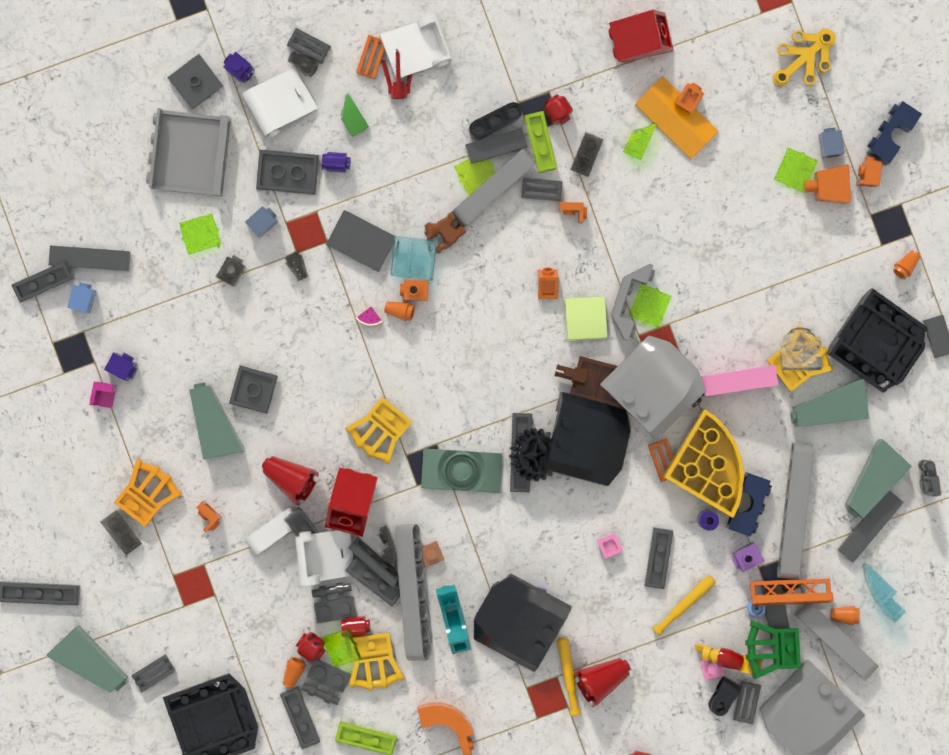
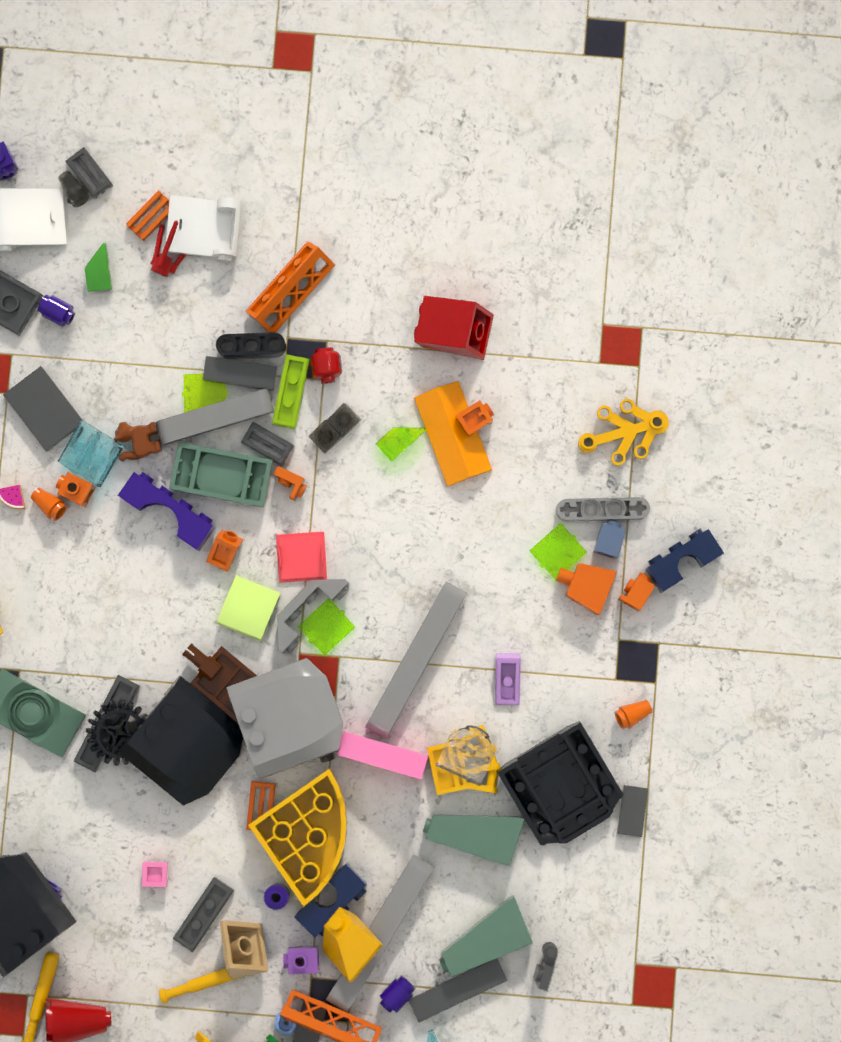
camera: 30 degrees right, 5 degrees down
(466, 269) = (142, 494): none -> dark purple arch
(500, 61) = (299, 266): none -> orange fence
(519, 228) = (220, 474): none -> sand green slope
(606, 262) = (301, 557): none -> coral piece
(702, 568) = (243, 948): none -> tan slope
(728, 299) = (415, 660): none -> light grey beam
(778, 529) = (349, 943): none -> yellow slope
(802, 281) = (507, 679): none -> lavender slope
(815, 123) = (602, 506): none -> light grey beam
(828, 550) = (396, 994): none -> dark purple brick

